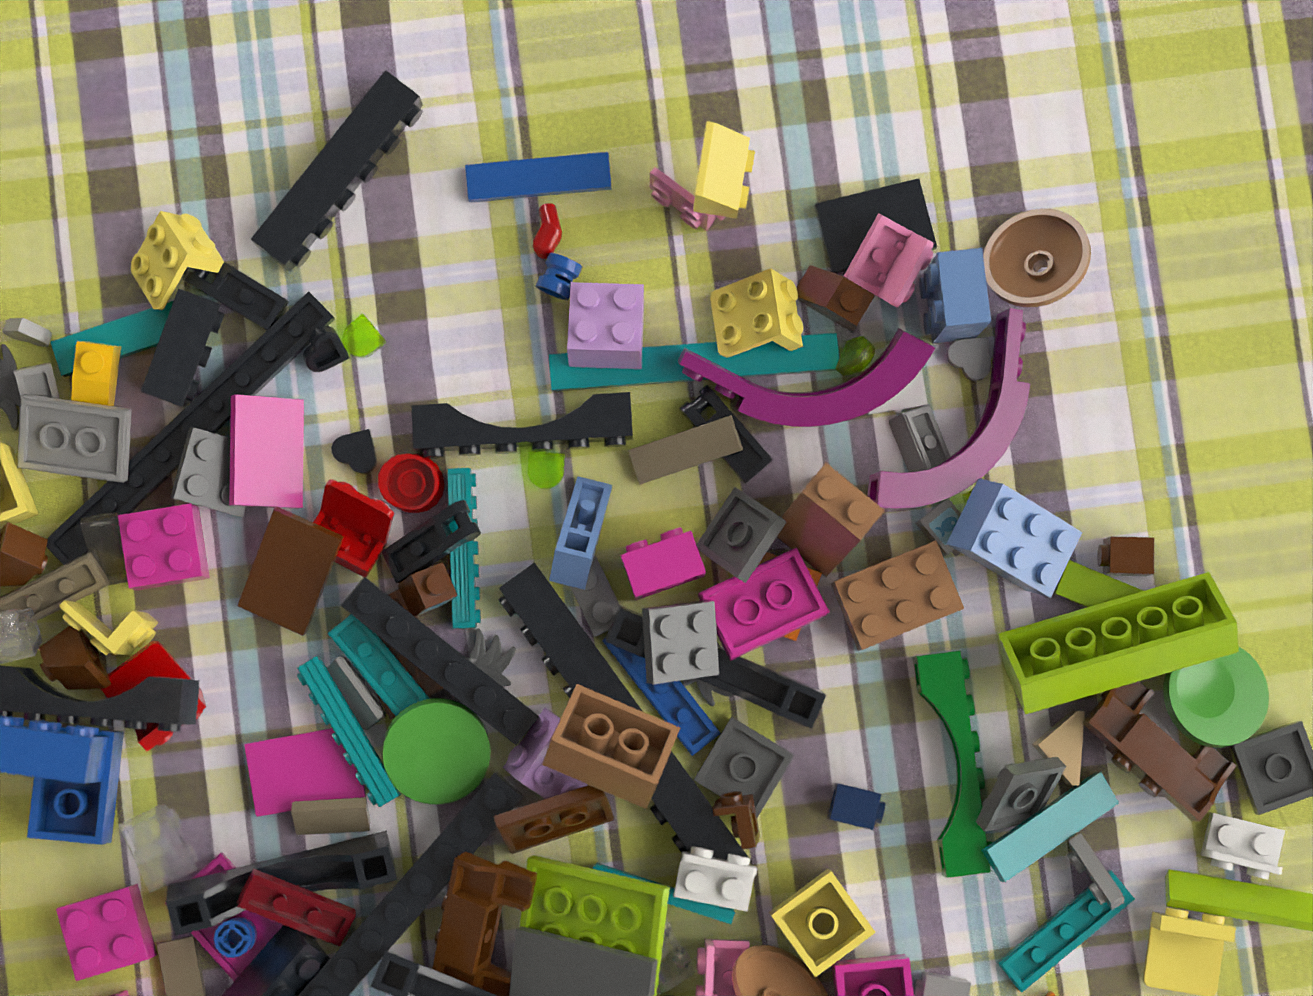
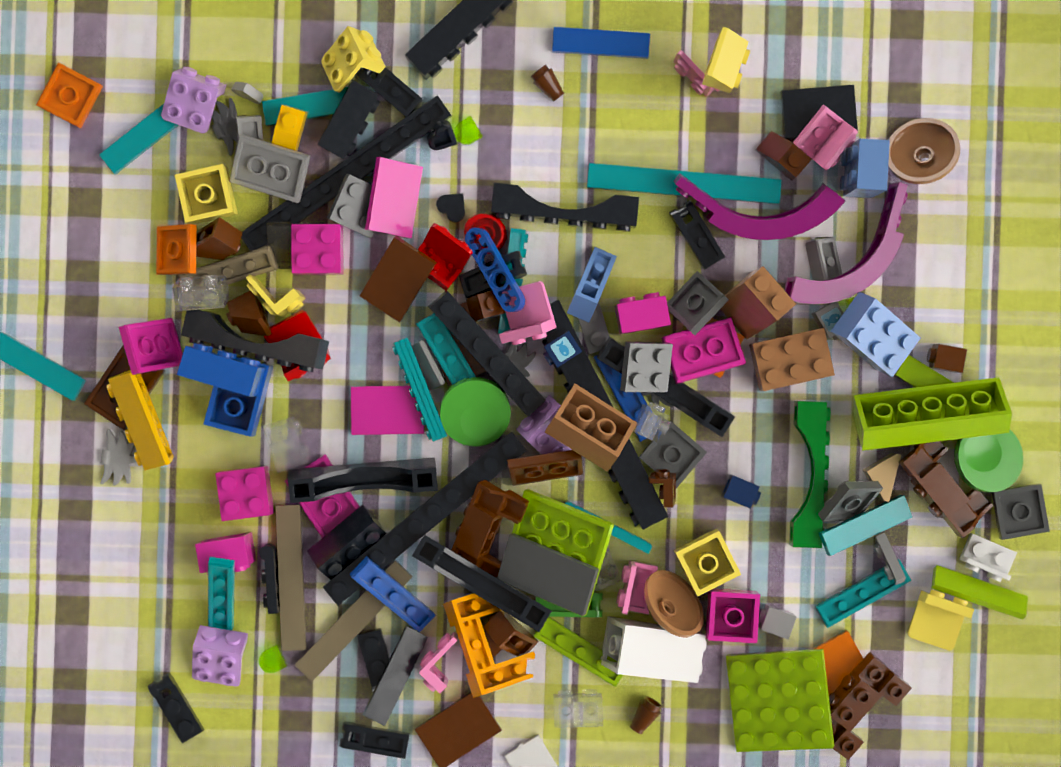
camera: 15 degrees right, 5 degrees up
(242, 935) = (331, 510): blue wheel -> none
(296, 907) = (370, 497): dark red plate -> none
(331, 816) = (400, 442): dark tan tile -> none
(428, 537) = (498, 267): none -> blue beam
(469, 247) = (547, 83): none -> reddish brown cone
(490, 590) = (533, 319): none -> bright pink bracket
(546, 469) = (574, 238): clear neon green tile -> none
(549, 231) = (602, 82): red arm -> none
(549, 637) = (561, 350): none -> brick
(558, 276) = (604, 112): blue wheel -> none
(606, 325) = (630, 150): lavender brick -> none
(685, 449) = (669, 241): dark tan tile -> none
(702, 723) = (652, 422): none -> clear brick
(715, 880) = (643, 524): white bracket -> none
(756, 313) = (731, 158): light yellow bracket -> none
(855, 356) = (791, 196): clear neon green tile -> none
(971, 357) = (867, 209): light grey tile -> none

